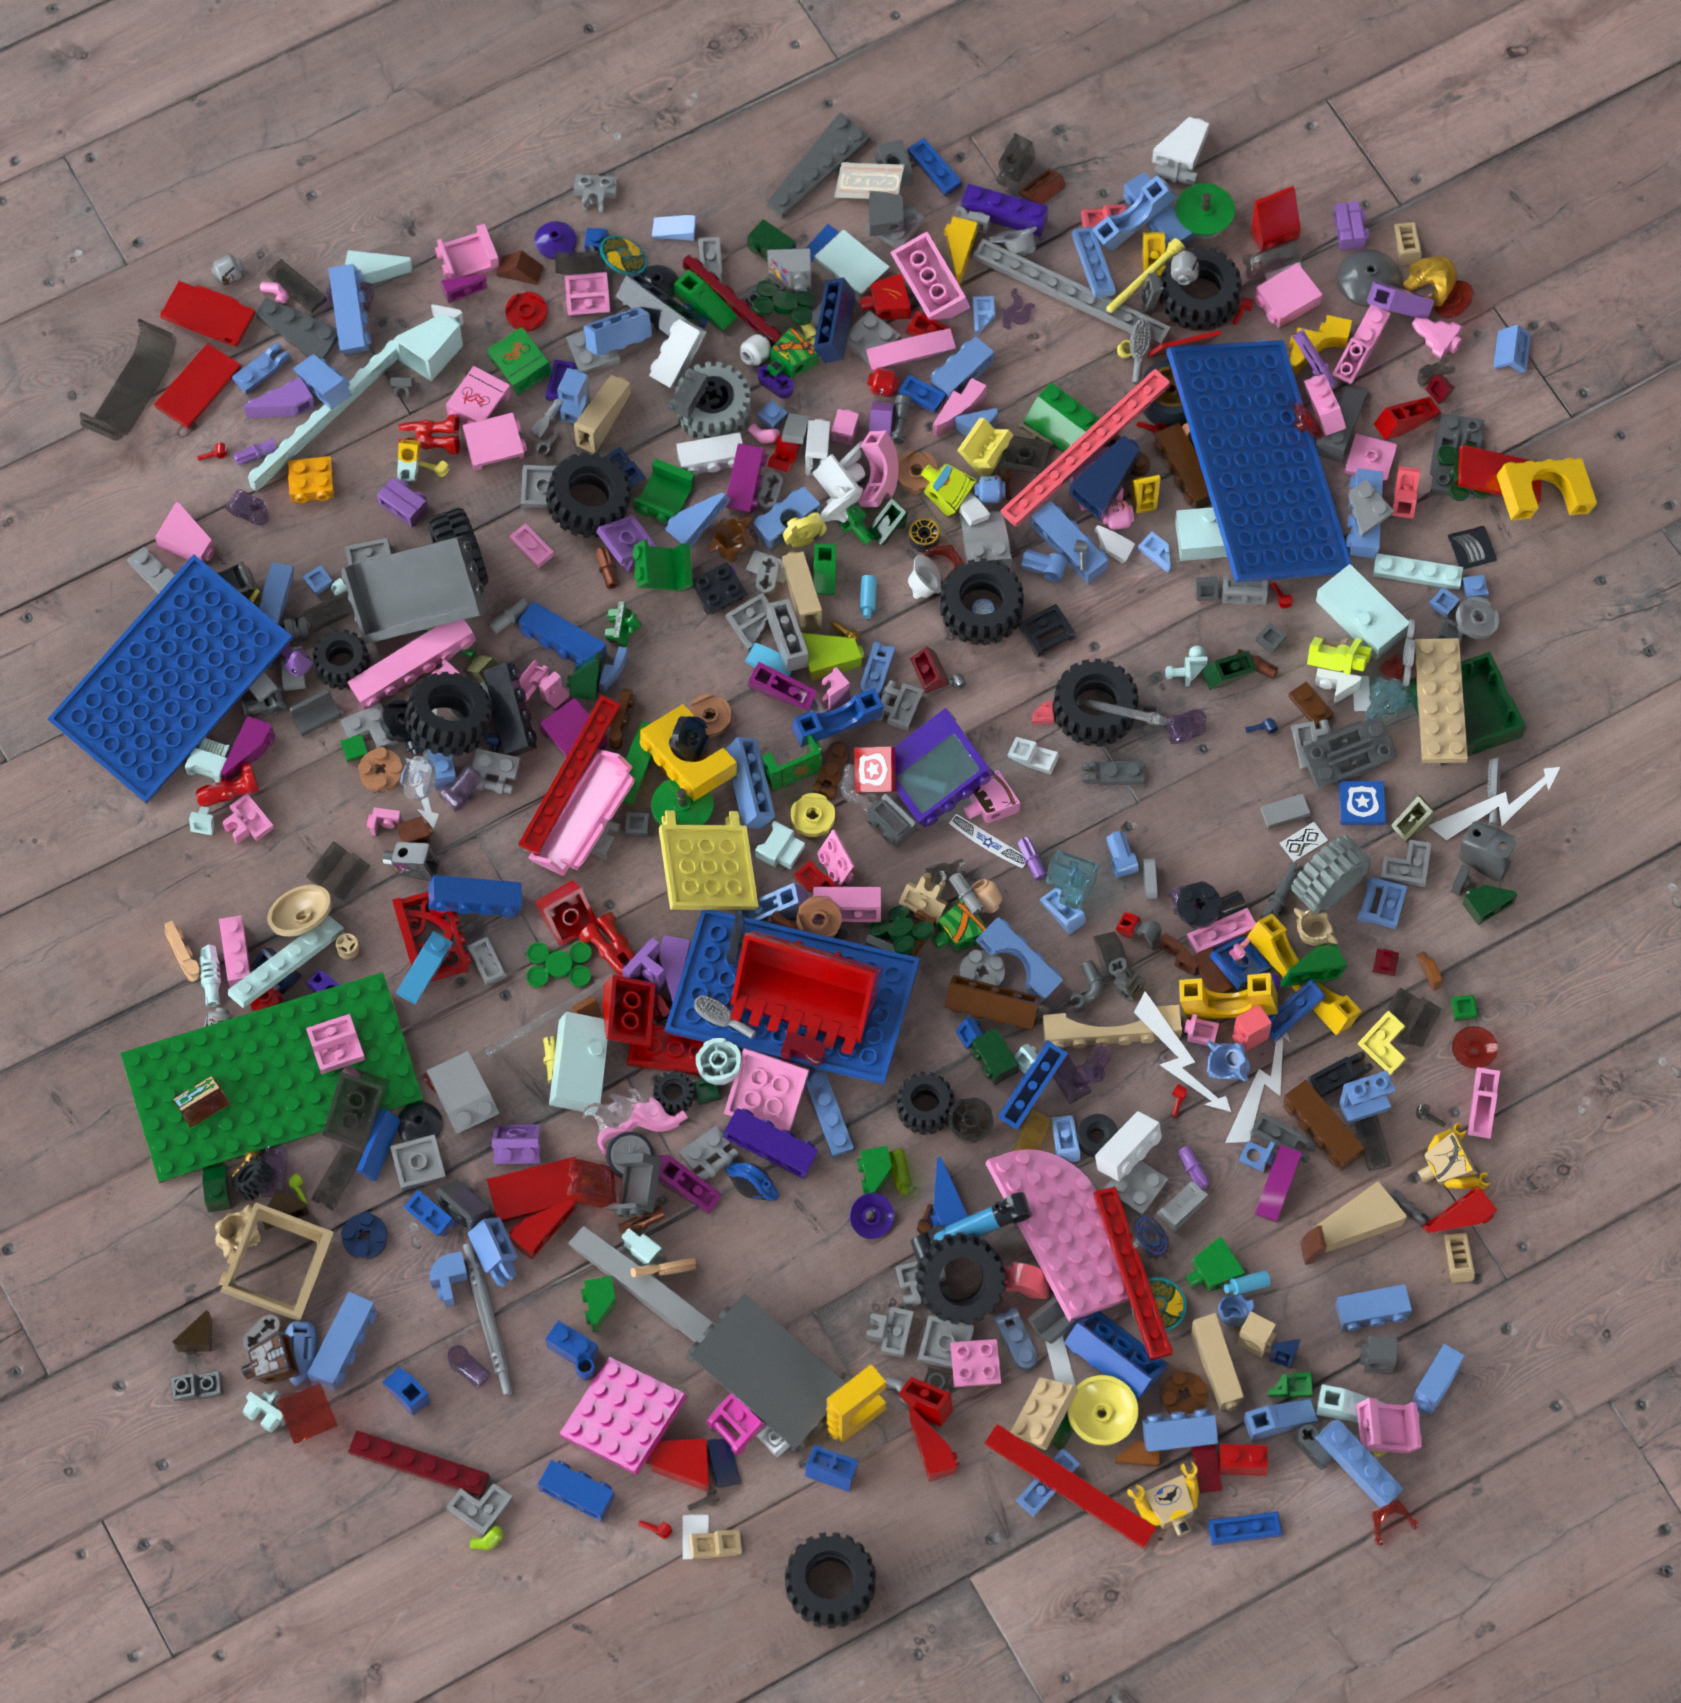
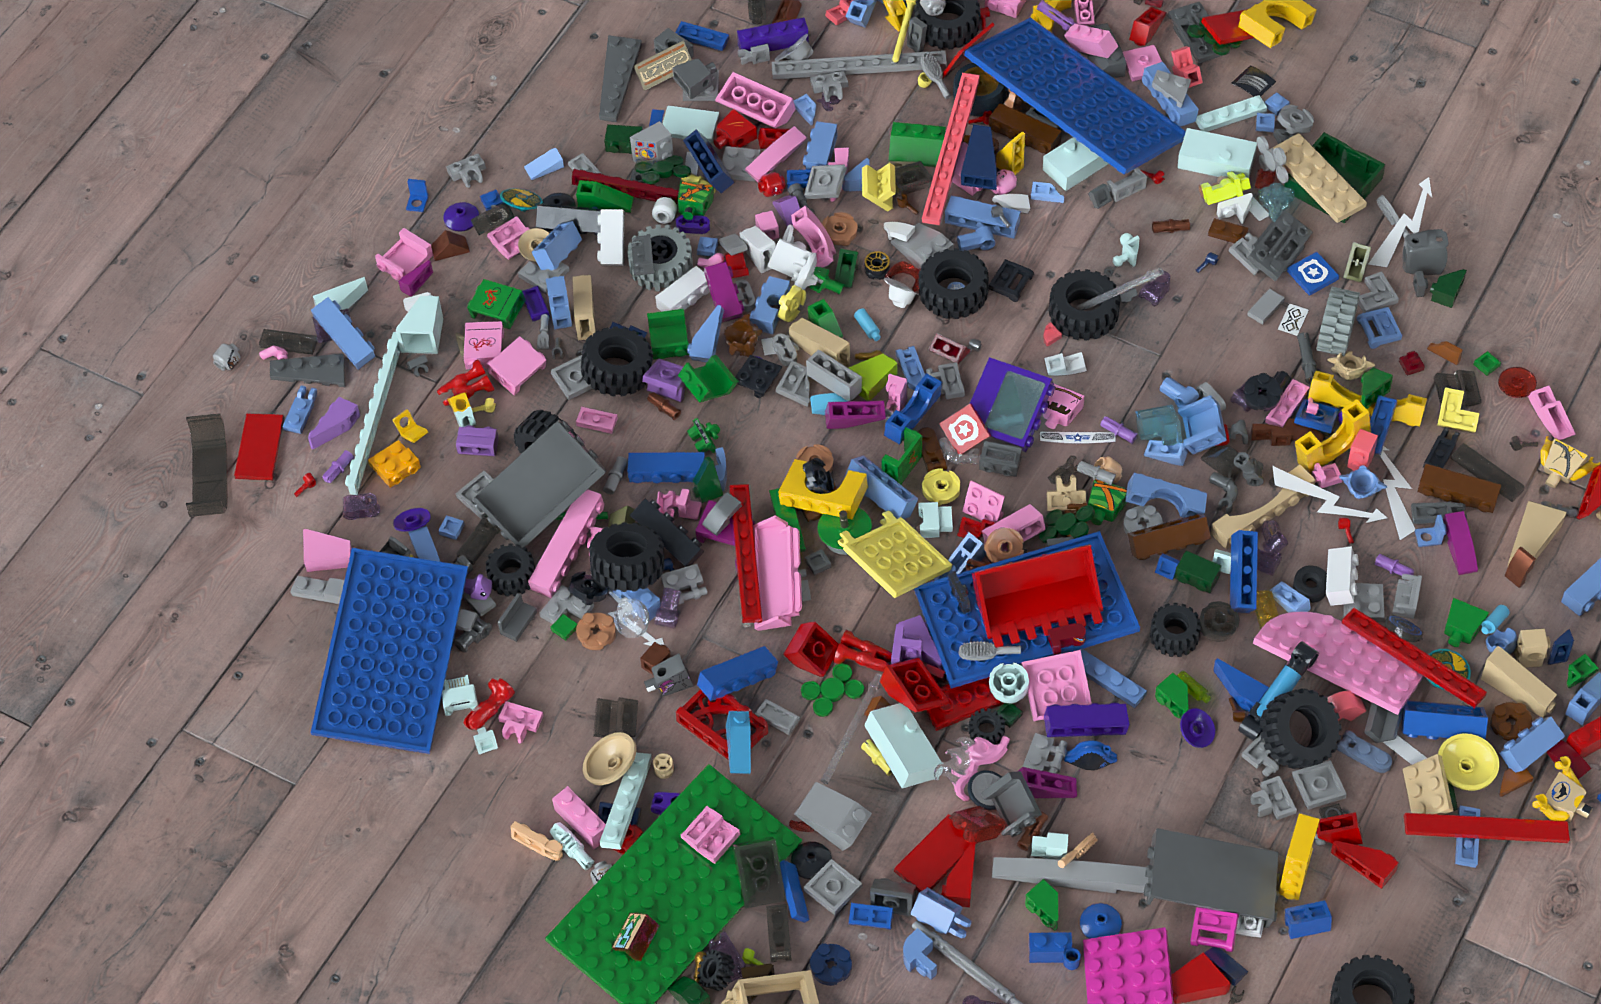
camera: 30 degrees left, 10 degrees down
(208, 313) = (232, 393): red piece -> none
(248, 747) = (483, 667): magenta slope -> none
(285, 550) = (411, 519): none -> dark purple dish
(323, 381) = (359, 389): medium blue brick -> none
(338, 587) = (471, 523): light aqua hinge -> none
(348, 454) = (412, 431): none -> yellow bracket
(383, 817) = (624, 660): bright pink bracket -> none
(413, 747) = (611, 599): black plate -> none
(516, 1144) = (899, 829): medium lavender bracket -> none
(526, 311) = (473, 271): red tile -> none
(529, 188) = (419, 192): none -> blue bracket
(570, 720) = (721, 513): none -> dark grey slope
(600, 307) = (529, 240): none -> tan dish
(622, 718) = (757, 509): reddish brown plate -> none
(641, 1360) = (1093, 928): none -> blue dish
(934, 411) = (825, 181): none -> light grey tile
(947, 487) = (871, 225): neon yellow torso -> none
(960, 240) = (756, 69): yellow slope -> none
(975, 1363) = (1352, 784): bright pink hinge -> none
(990, 489) = (901, 211): medium blue head -> none
(1024, 299) = (829, 84): none -> light grey plate
(1093, 262) = (860, 37): medium blue plate -> none
(1114, 773) = (1130, 345): dark grey hinge -> none
(1116, 904) = (1202, 424): none -> medium blue panel
(1228, 670) = (1157, 237): dark green slope -> none
(1271, 638) = (1168, 204): dark grey plate -> none
(1306, 421) = (1088, 57): clear red dish -> none
(1363, 1100) = (1477, 448): medium blue window -> none

